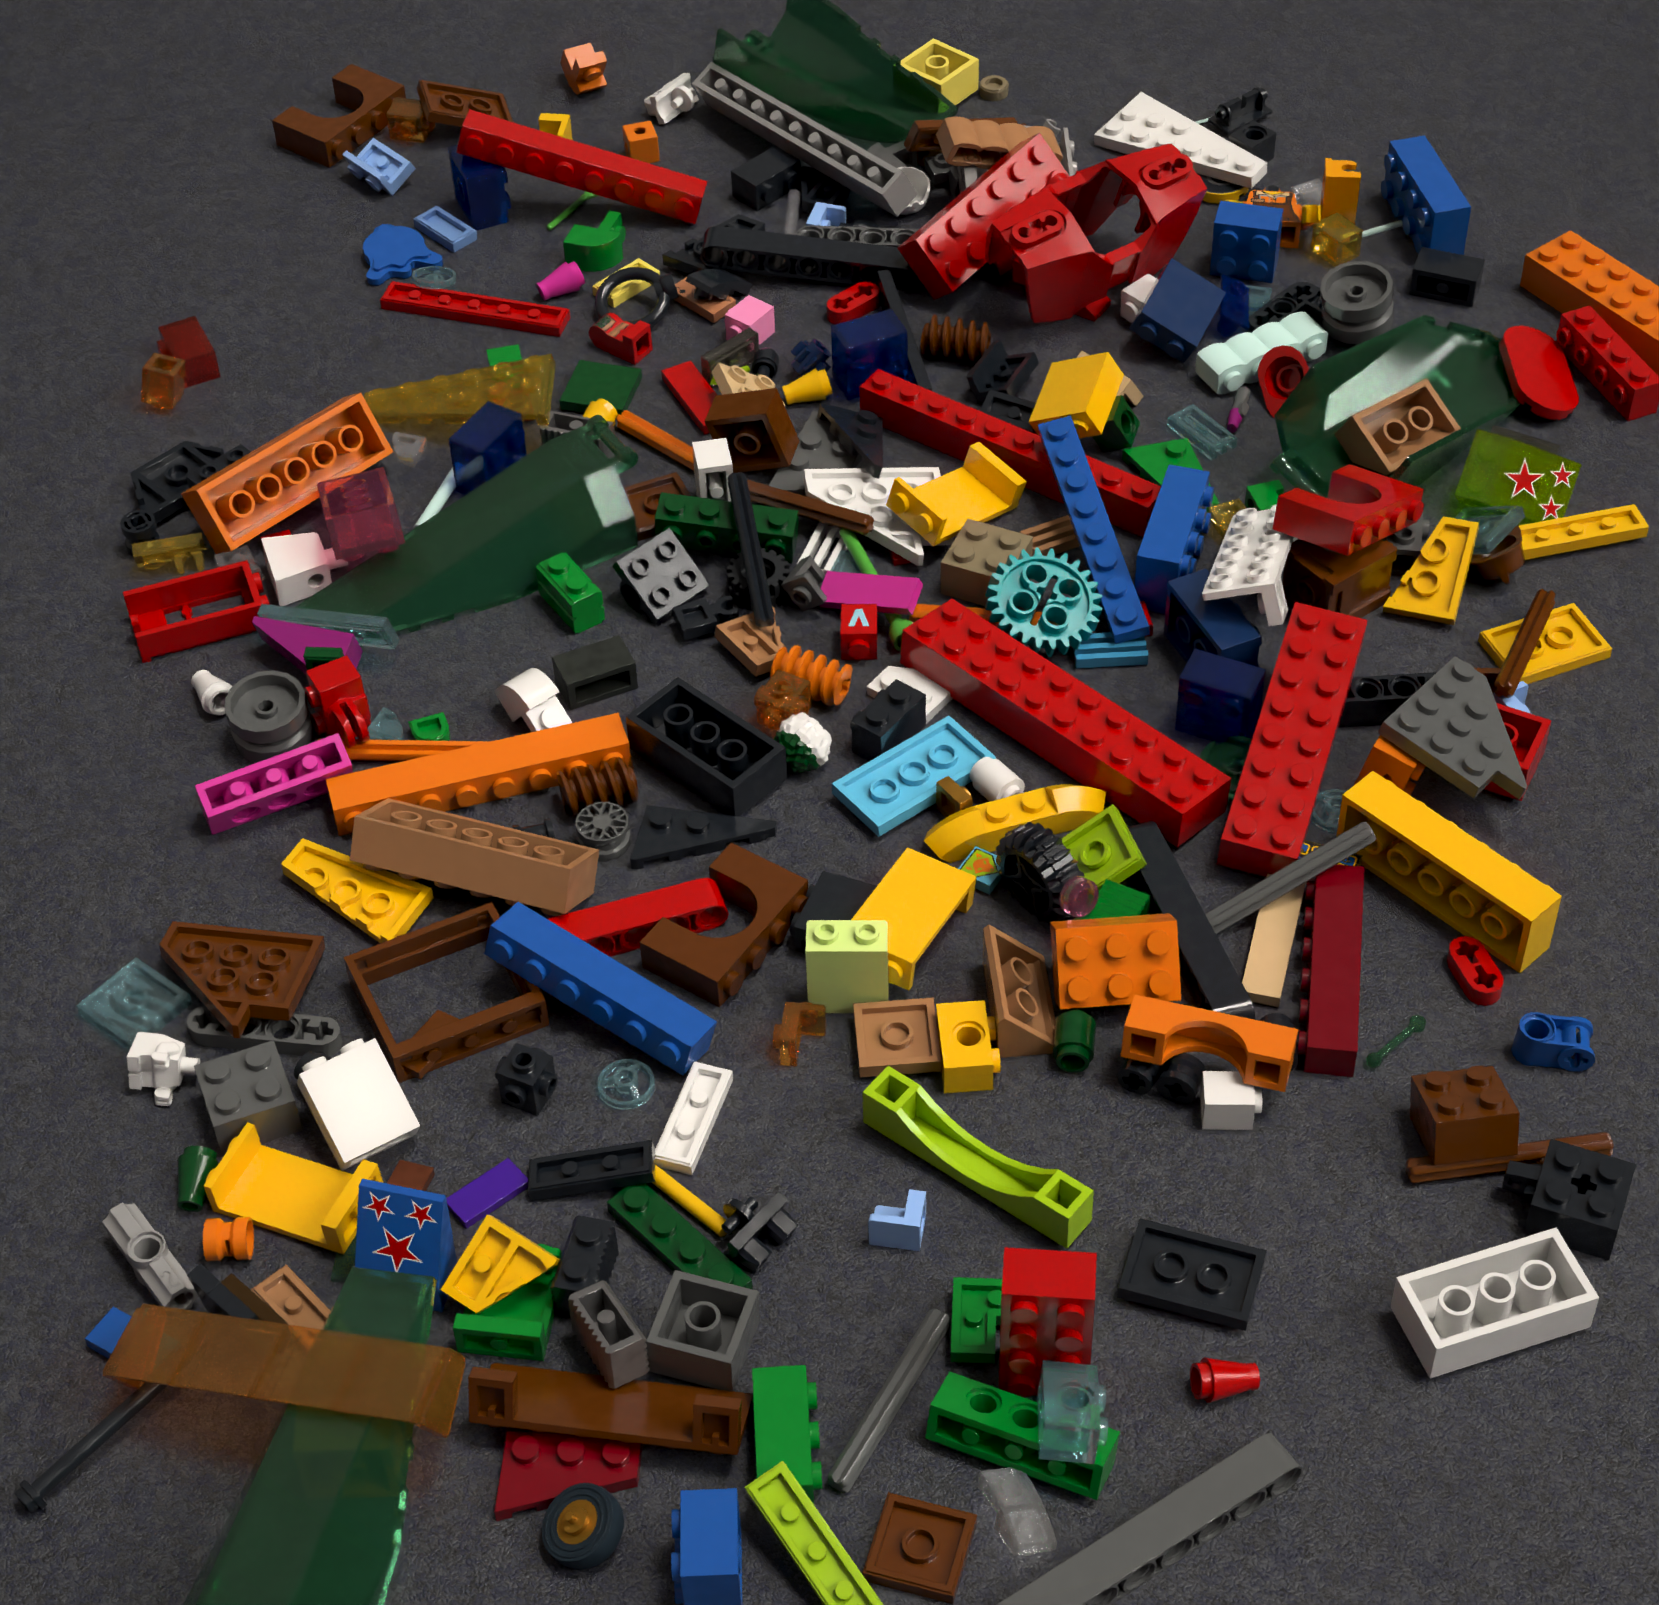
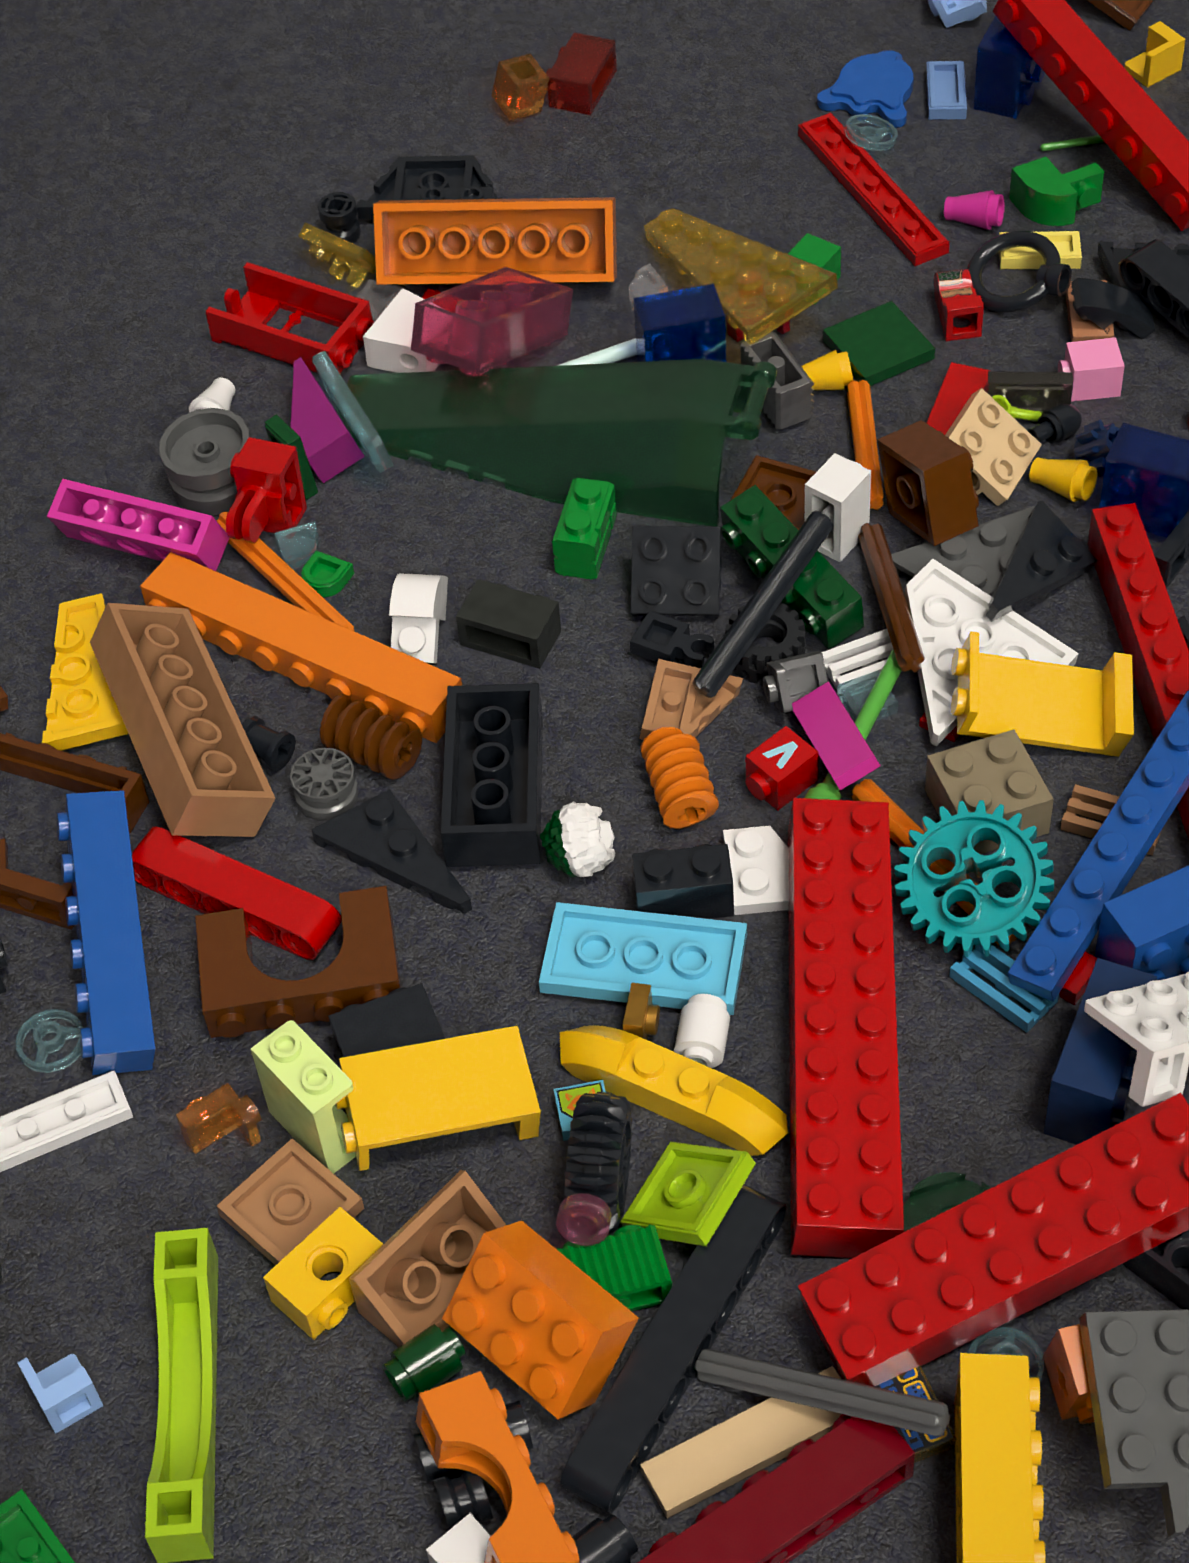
camera: 50 degrees right, 5 degrees up
(782, 698) = (616, 783): clear orange brick -> none
(1219, 697) = (1008, 1121): clear blue brick -> none

